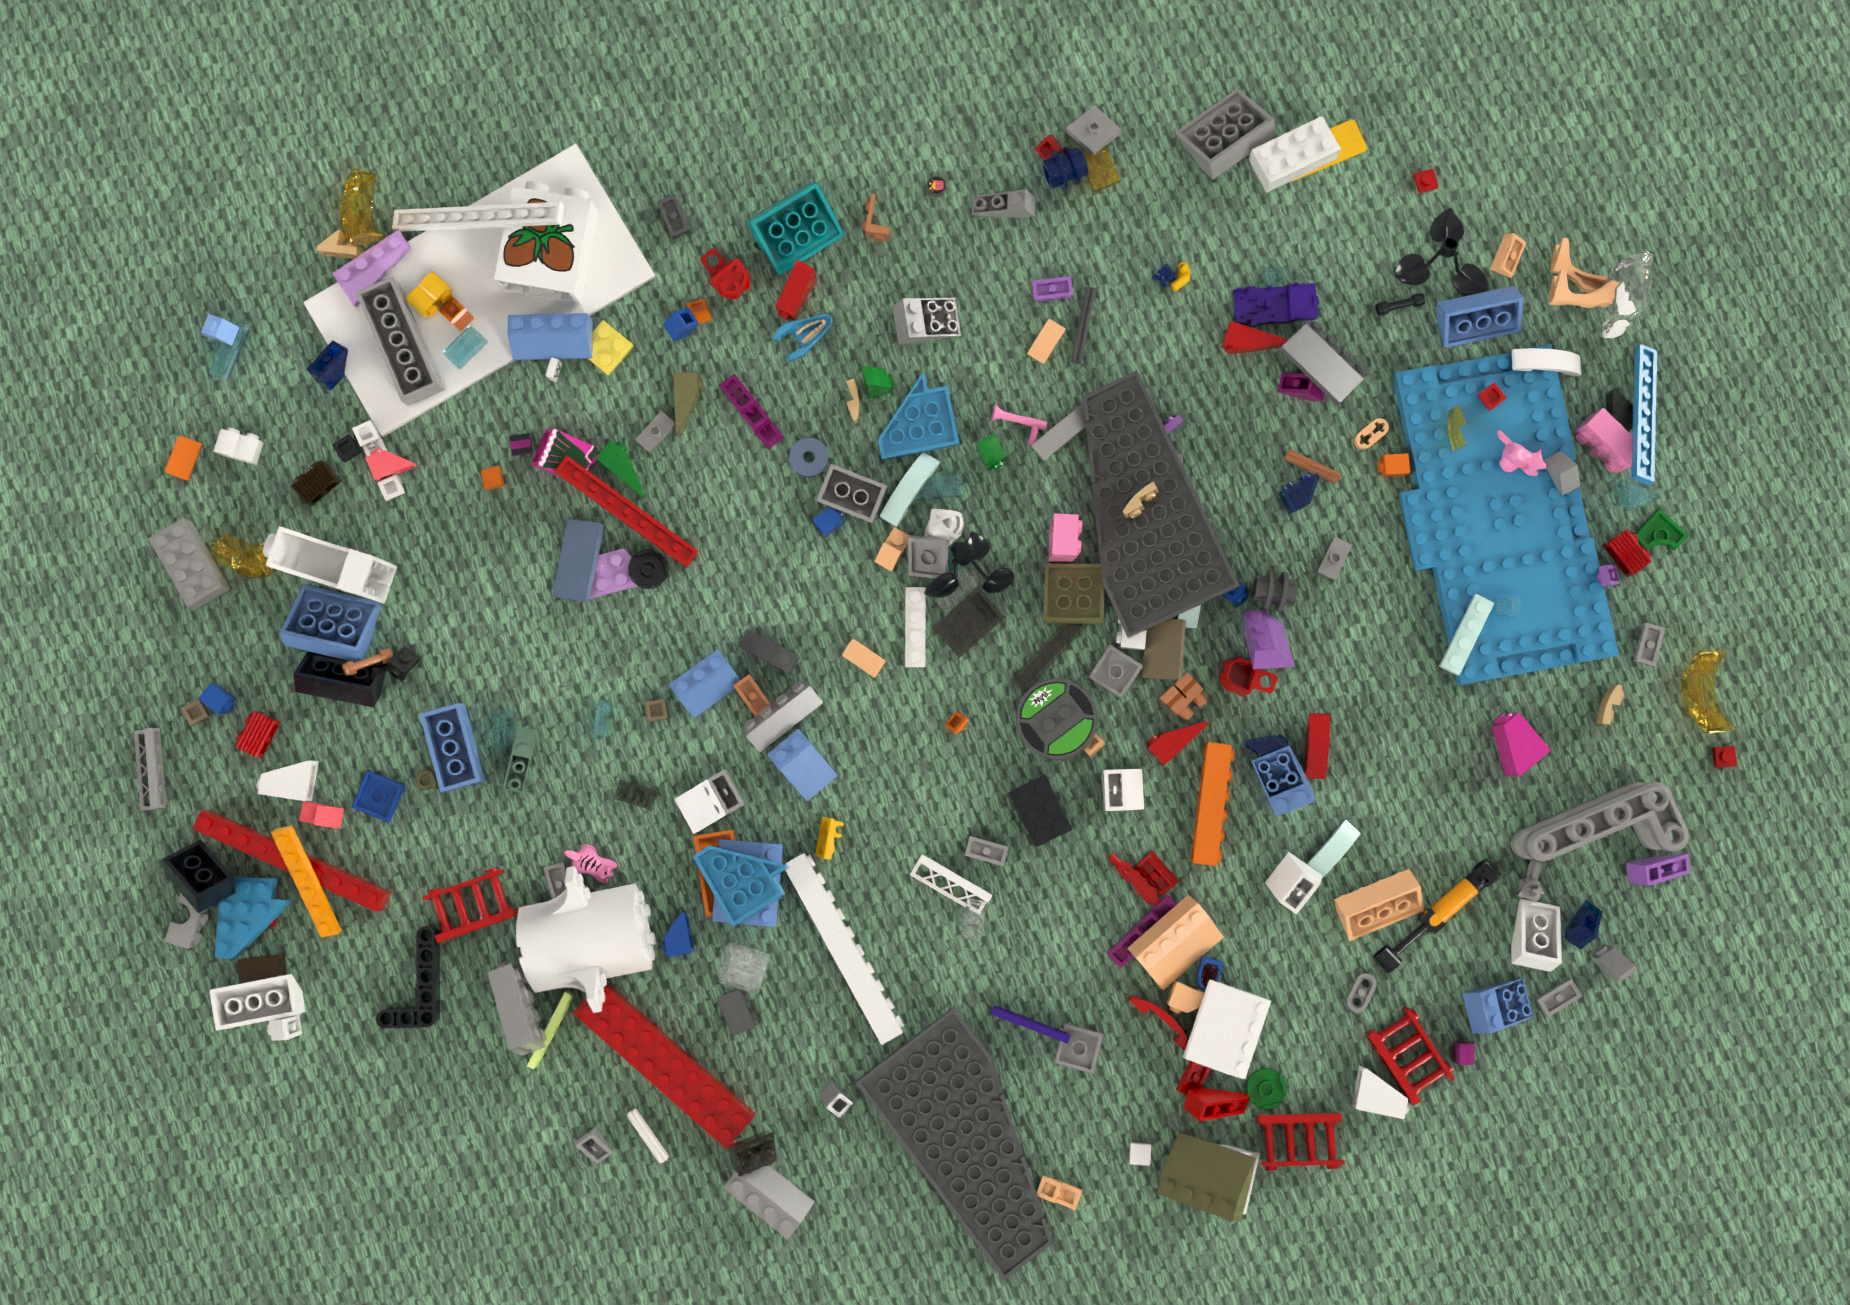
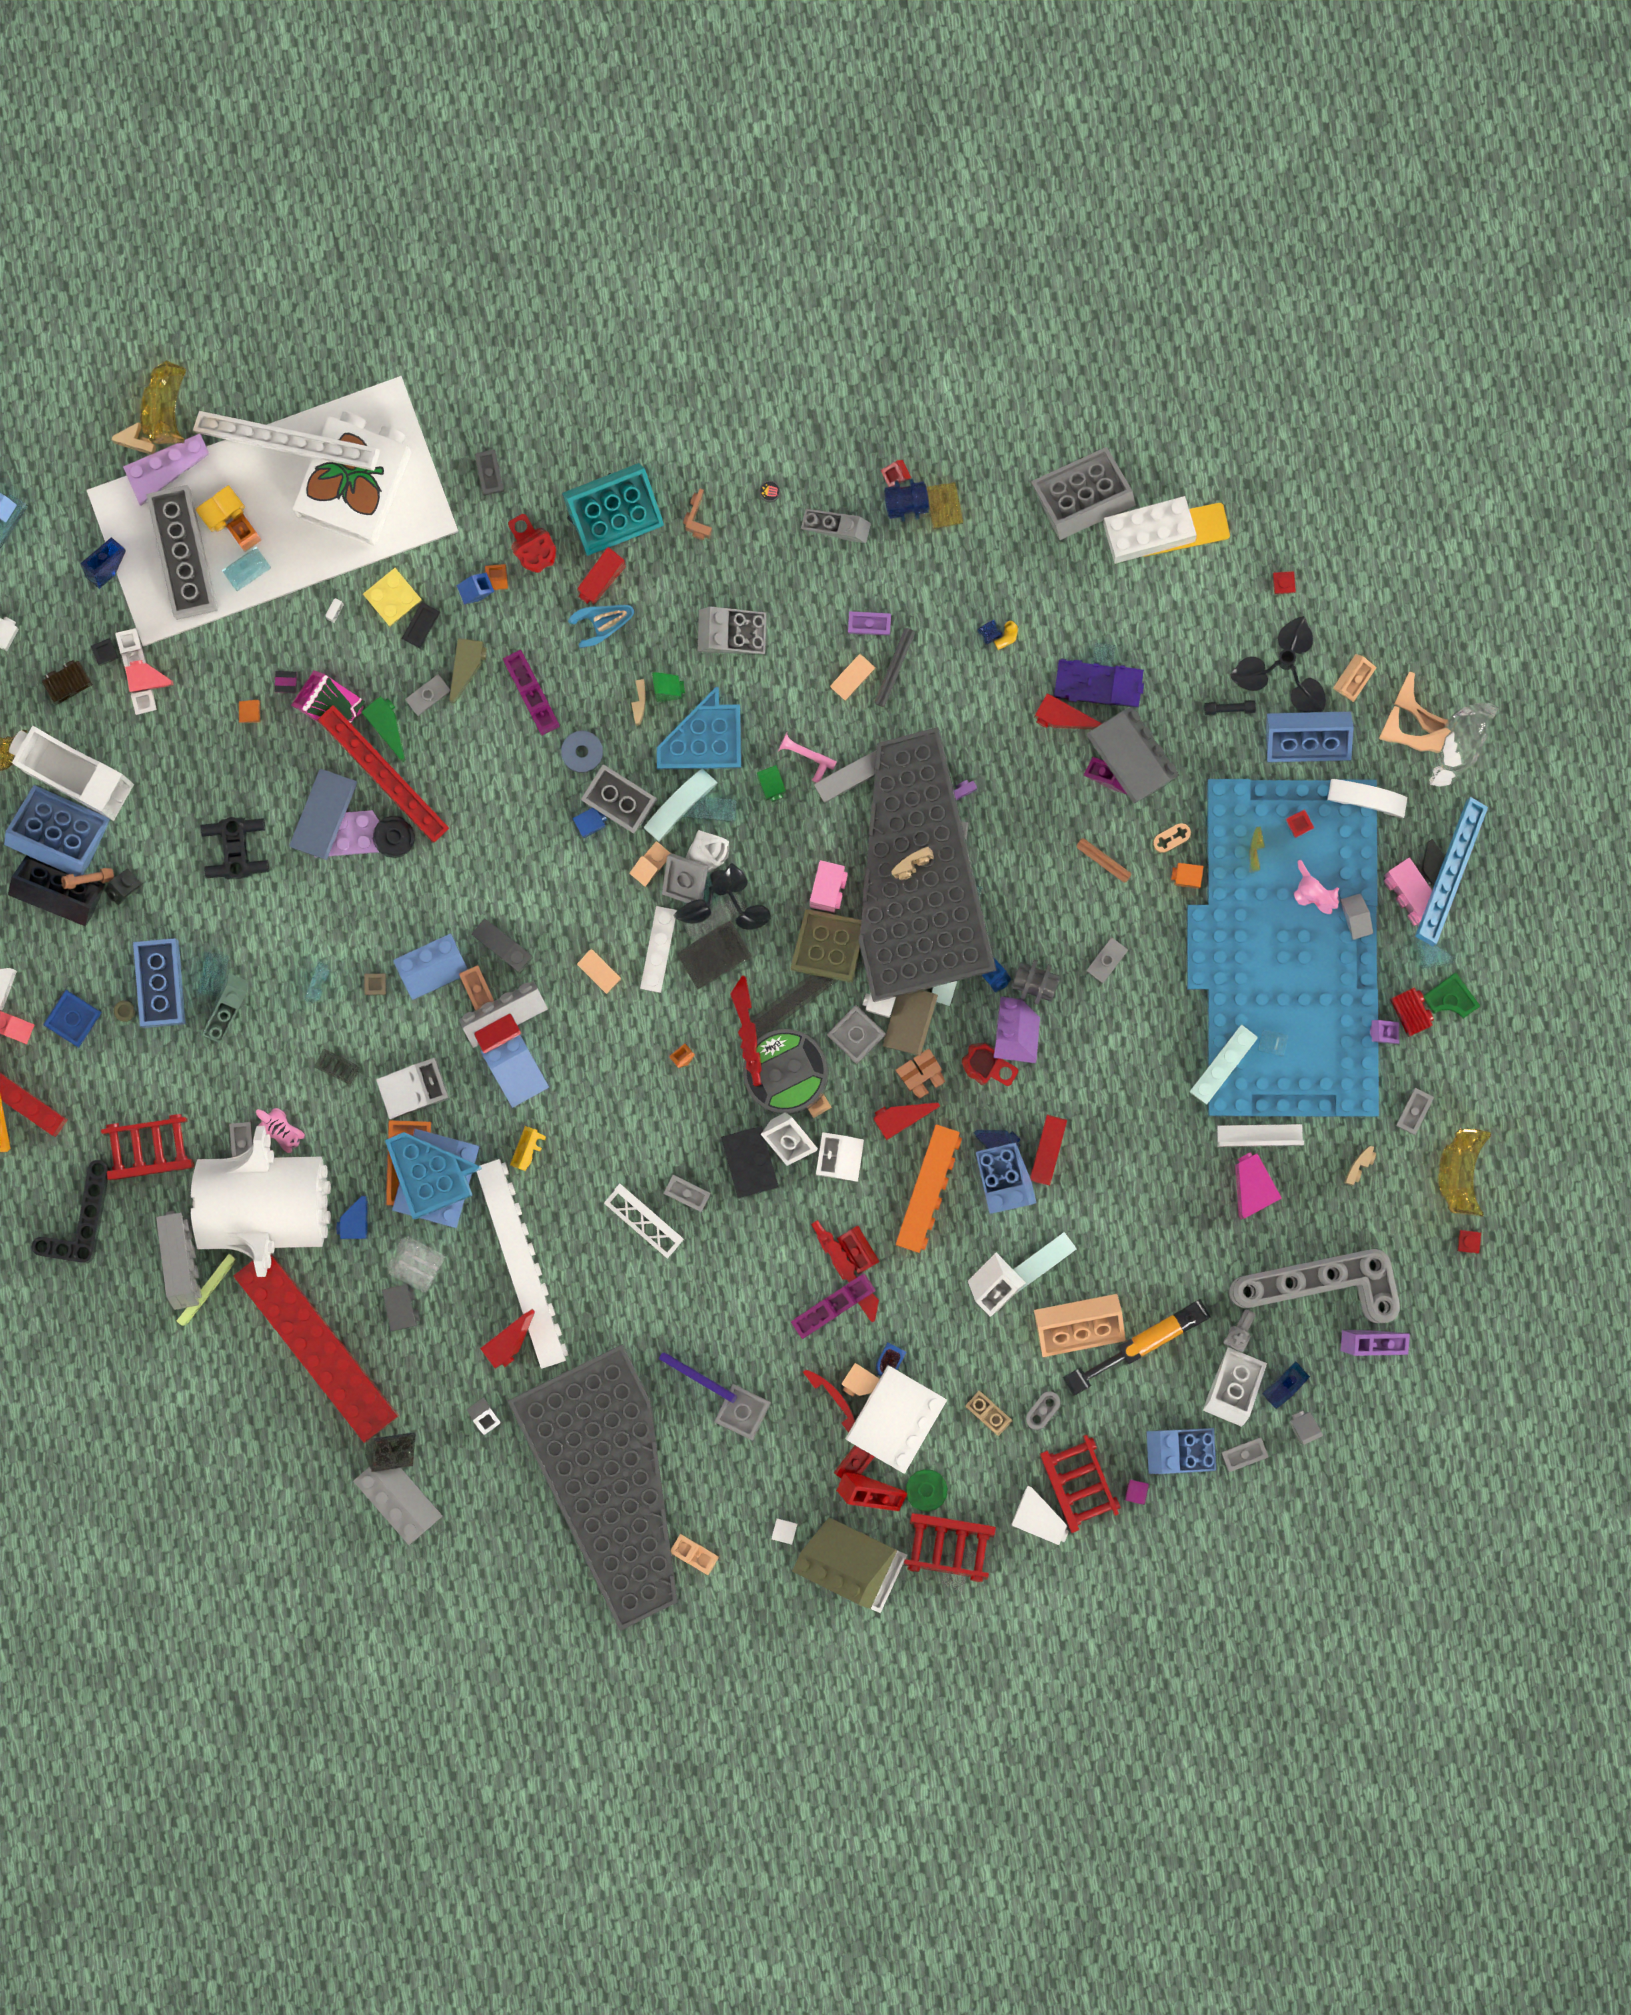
camera: 10 degrees right, 0 degrees up
(501, 607) = (234, 848): none -> black piece
(550, 336) = (338, 576): medium blue slope -> none
(594, 1145) = (229, 1416): light grey slope -> none
(637, 369) = (420, 625): none -> black tile
(647, 1135) = (285, 1417): white axle -> none
(779, 735) = (497, 1033): none -> red slope
(845, 1025) = (508, 1342): none -> red slope
(973, 920) = (660, 1261): clear slope -> none
(1013, 689) = (742, 1002): none -> red sword
(1073, 782) = (788, 1139): none -> white slope
(1093, 130) = (945, 464): light grey plate -> none
(1175, 942) = (862, 1323): light nougat slope -> none
(1300, 494) = (1082, 887): clear blue slope -> none
(1309, 1004) = (988, 1413): none -> tan slope
(1510, 694) = (1259, 1135): none -> white panel

